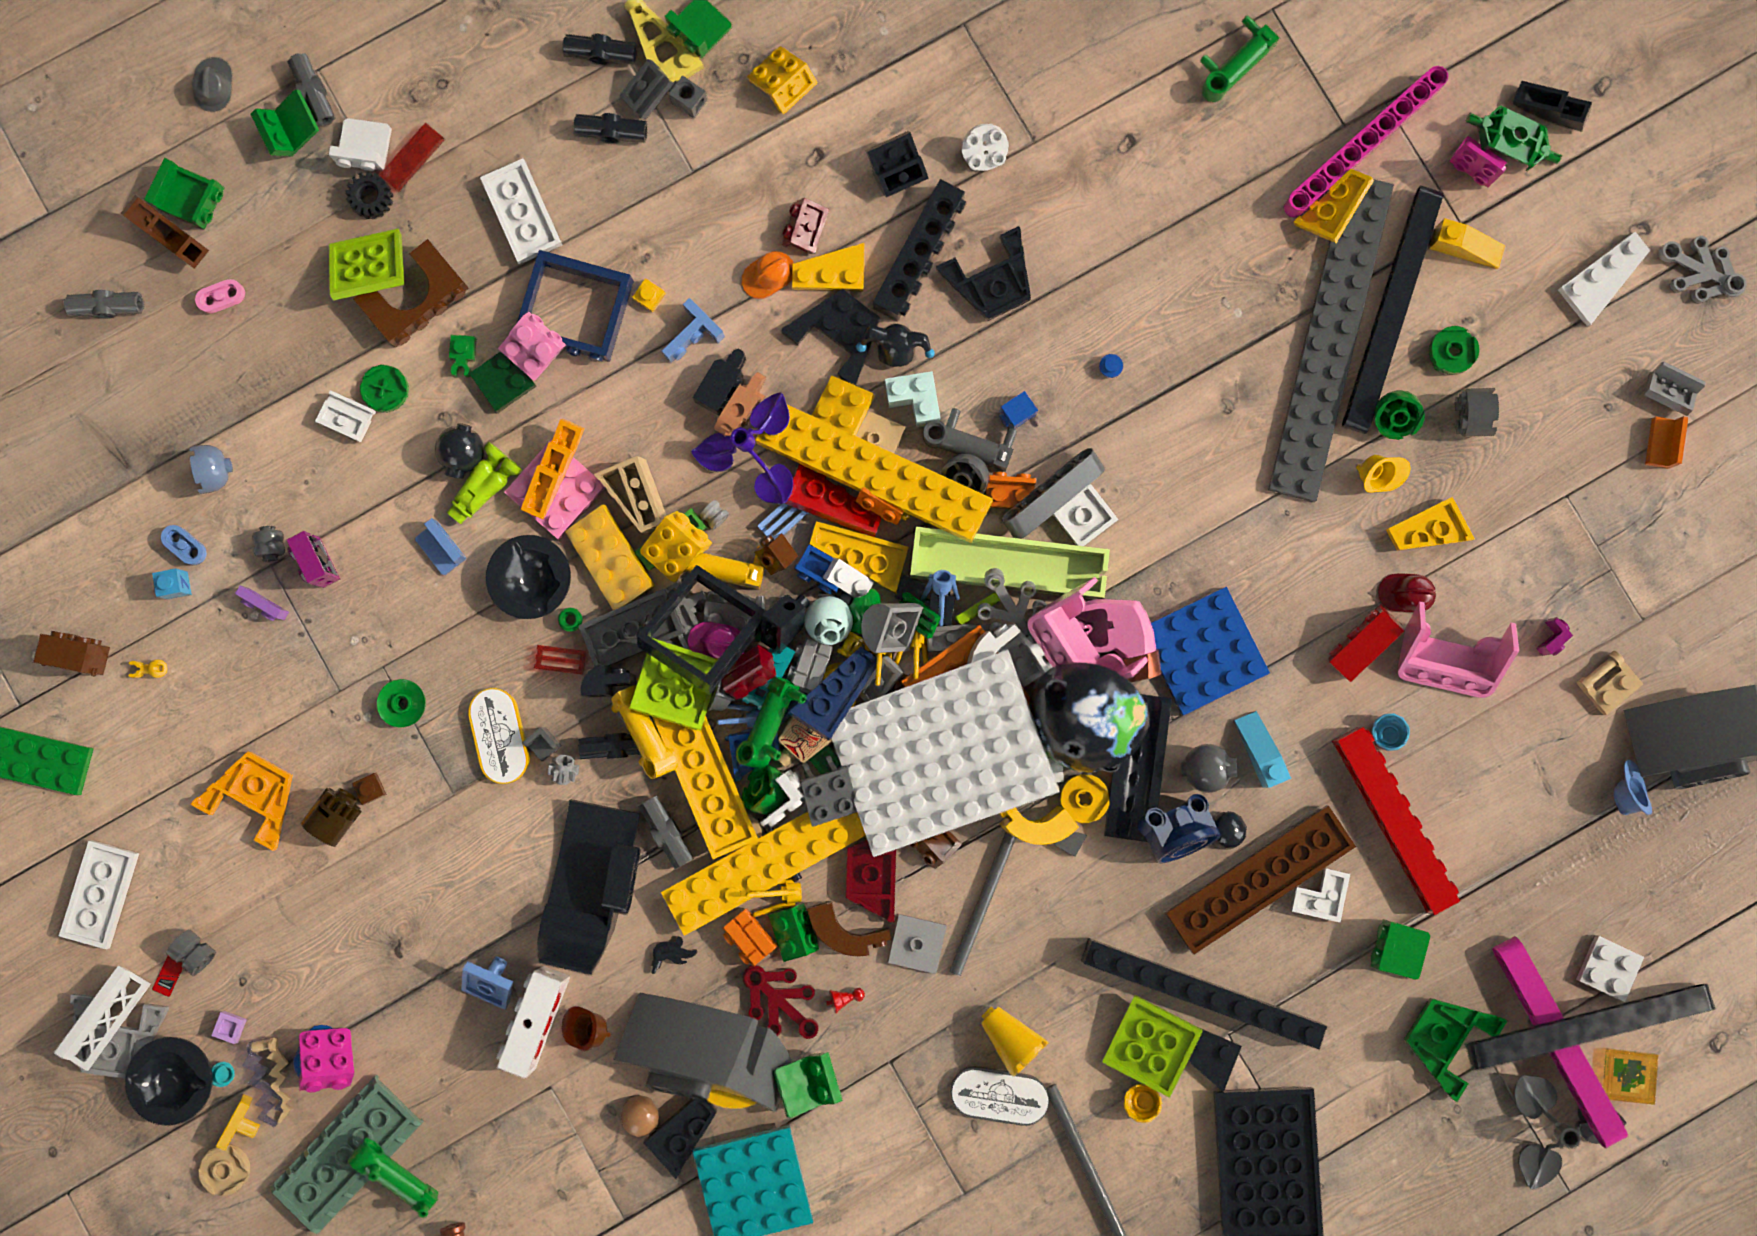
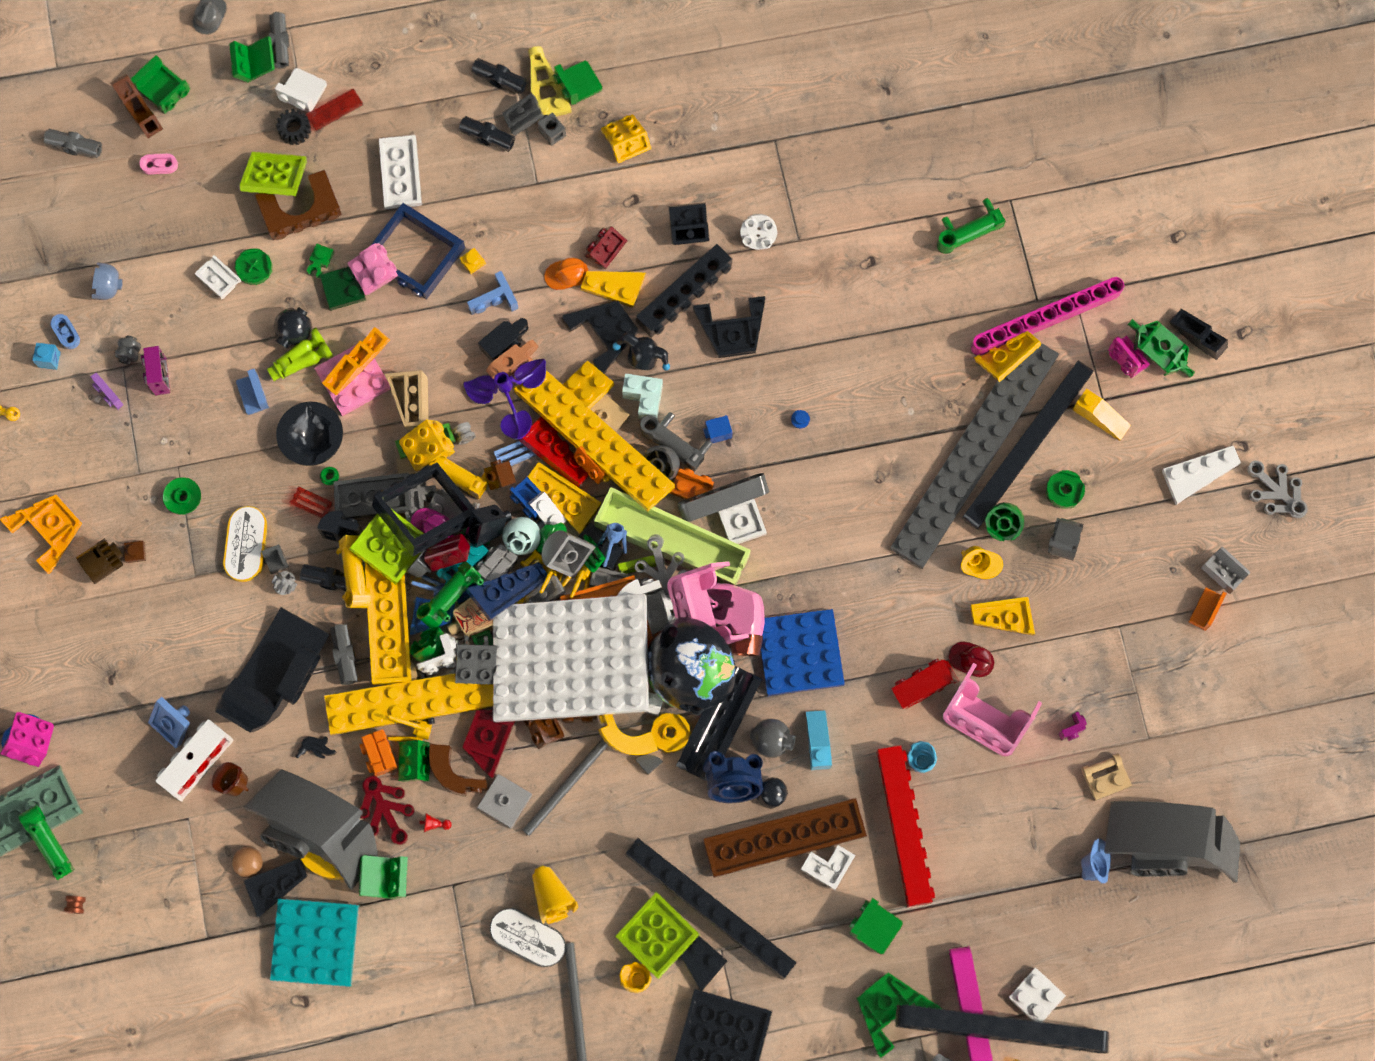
camera: 15 degrees right, 10 degrees down
(609, 558) = (375, 439): yellow plate -> none

